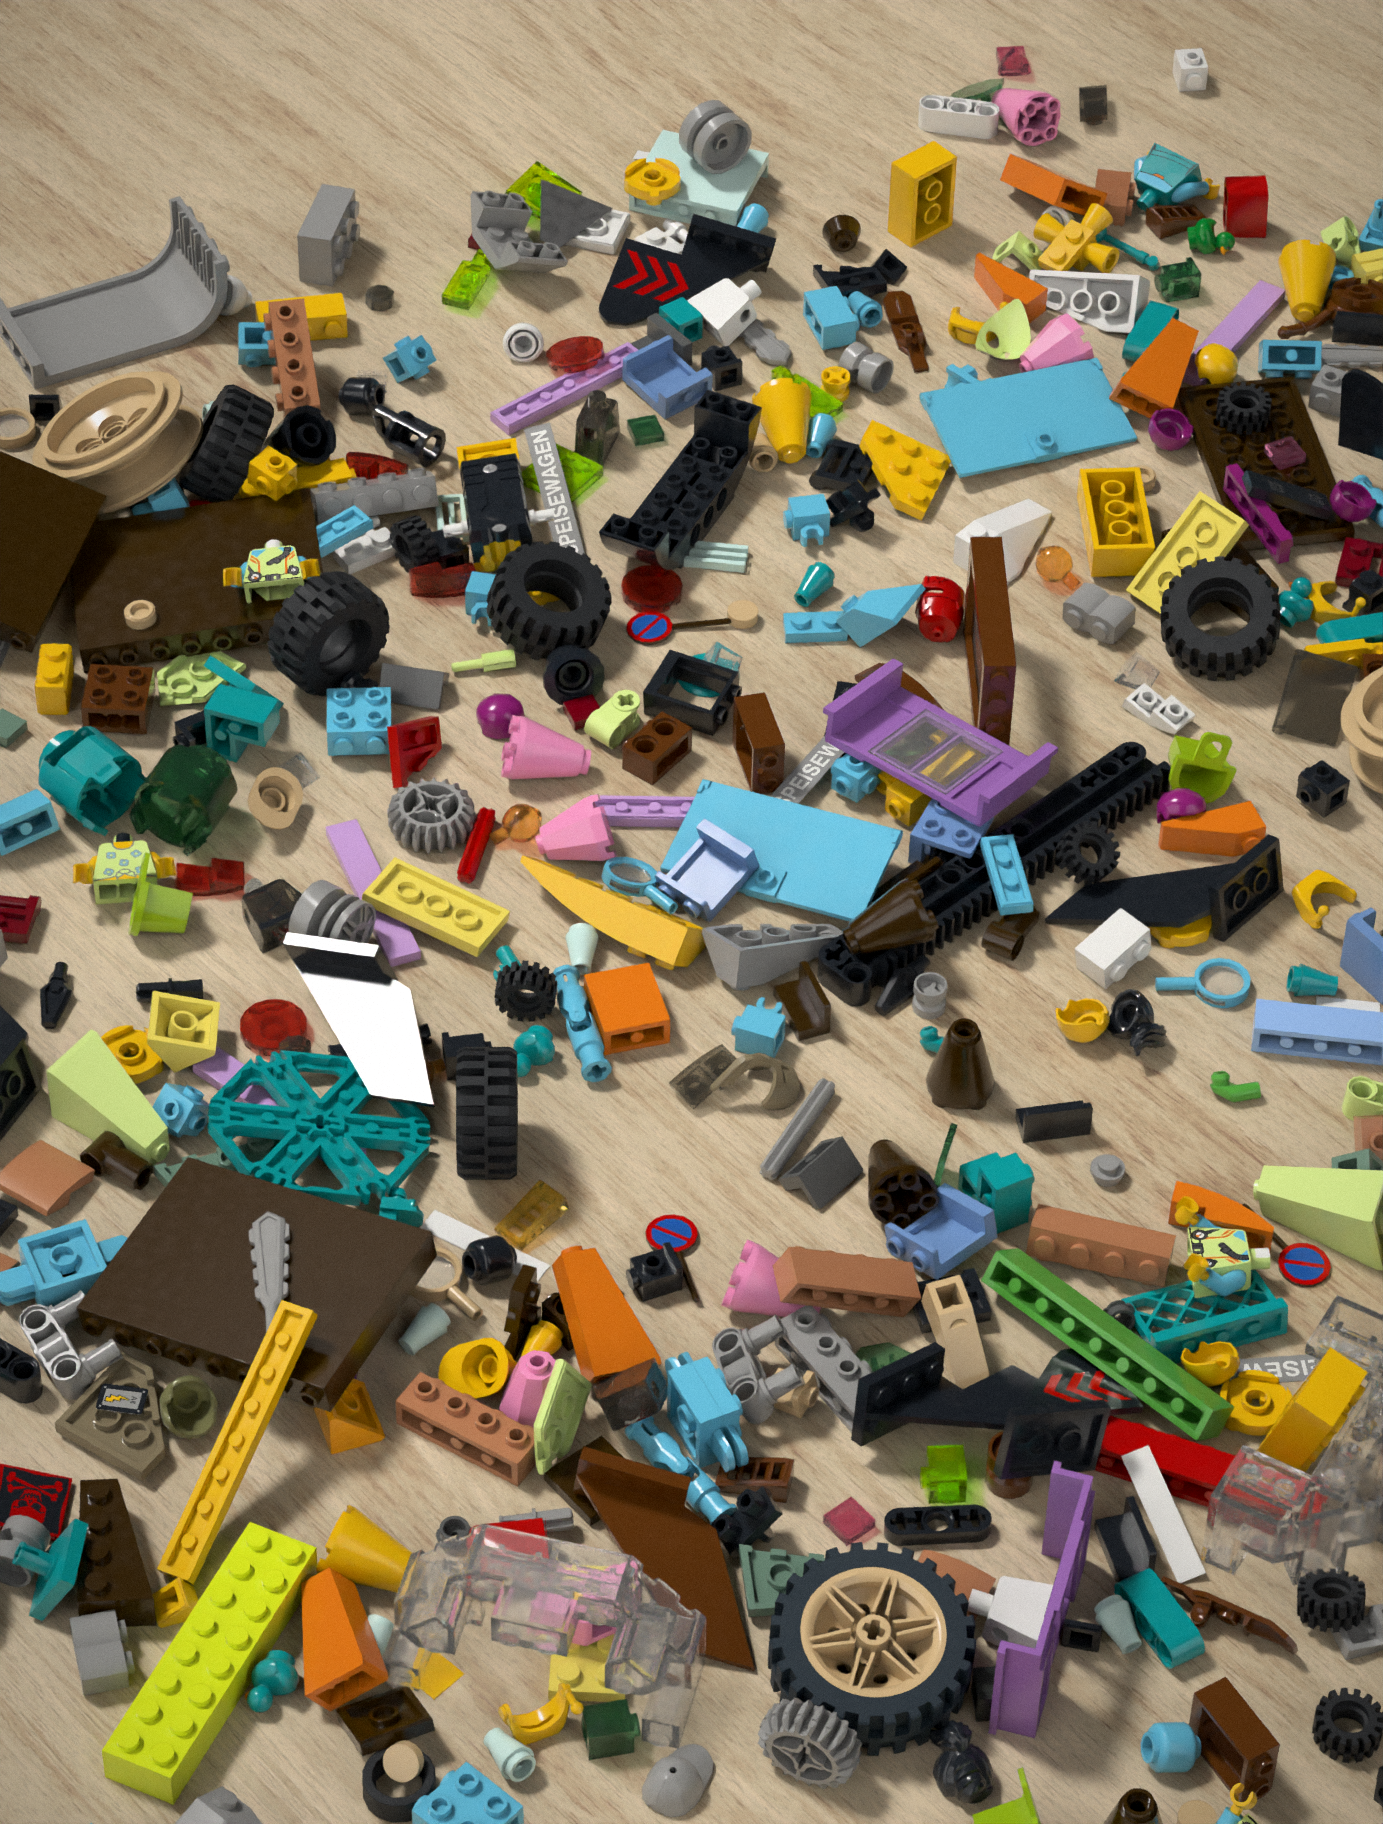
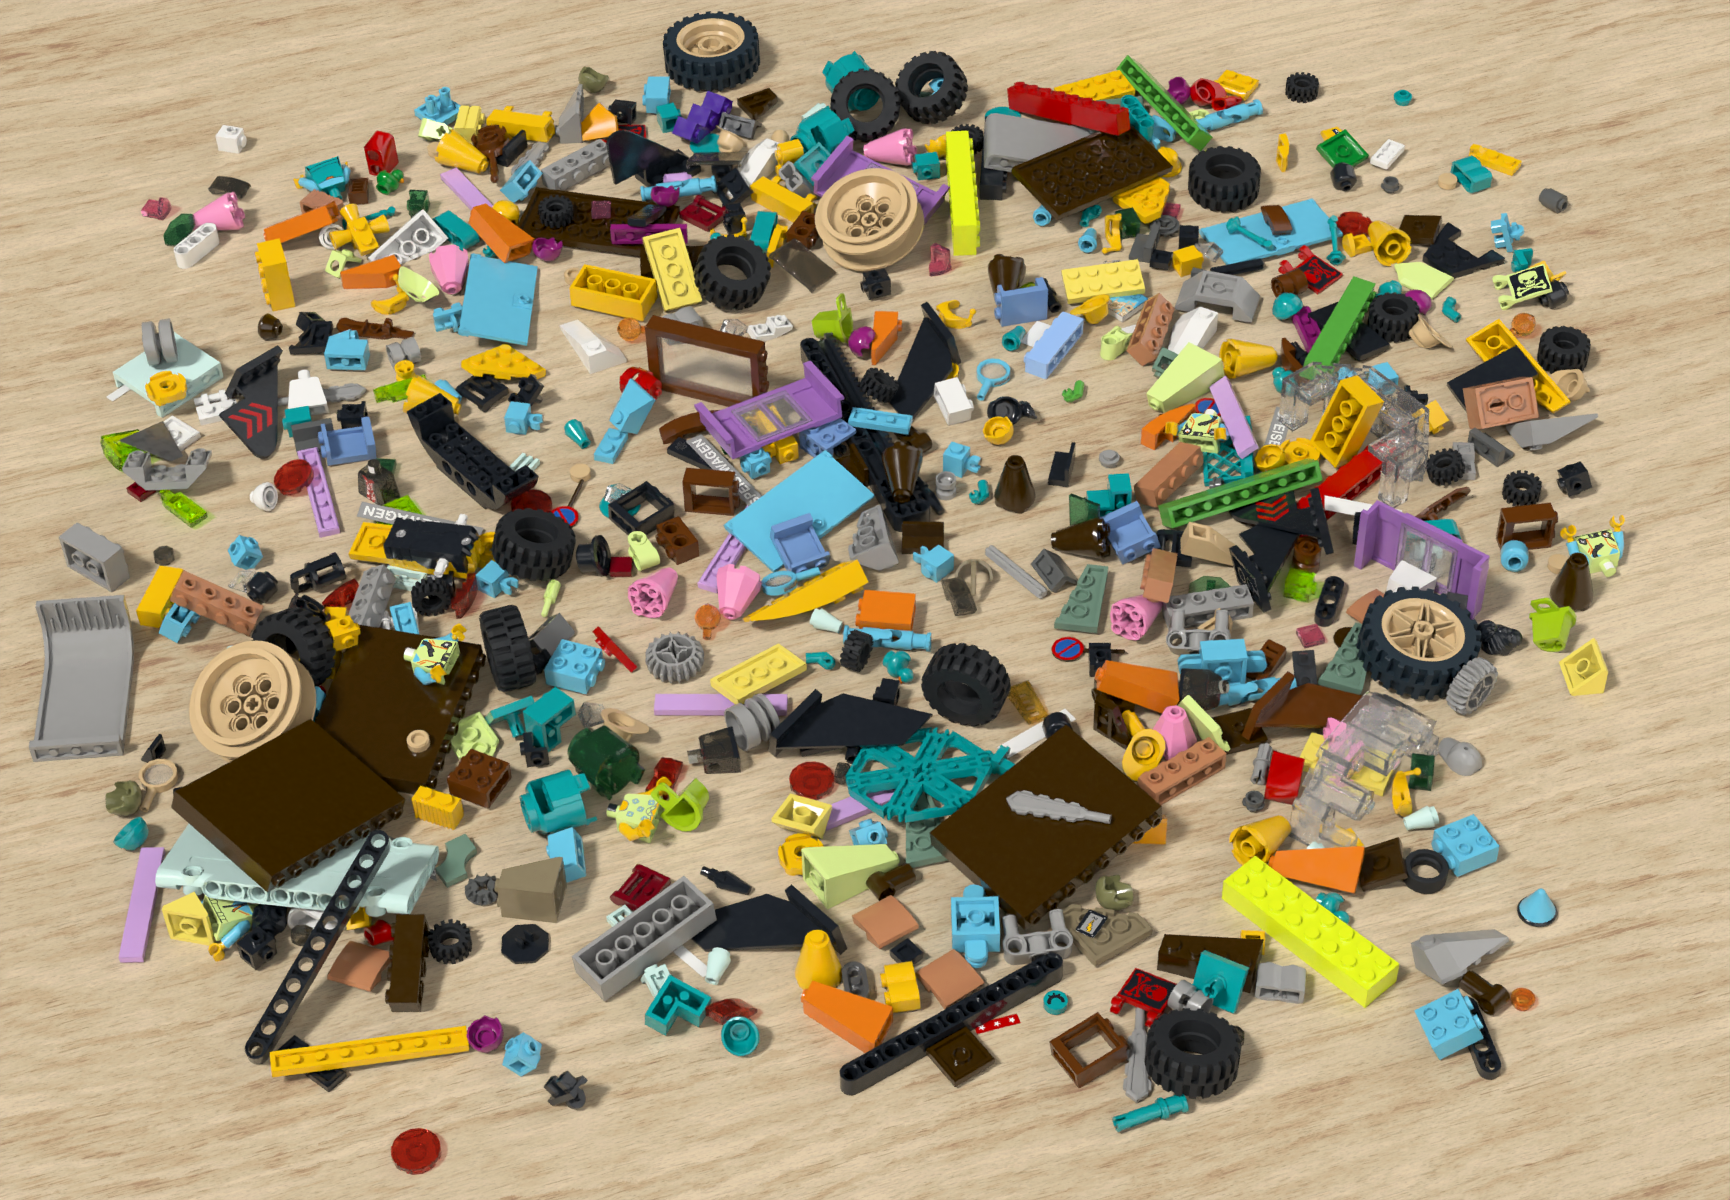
camera: 65 degrees left, 0 degrees up
(186, 988) = (755, 820): black axle -> none
(237, 1442) = (1172, 862): yellow plate -> none
(403, 1761) = (1420, 859): tan tile -> none
(476, 845) = (712, 647): red axle -> none
(495, 714) = (602, 603): magenta hair -> none
(753, 218) = (227, 363): medium azure cone -> none
(777, 1223) = (1085, 602): none -> sand green wing
(990, 991) = (957, 460): none -> medium azure brick
(1273, 1287) = (1233, 417): none -> lavender tile

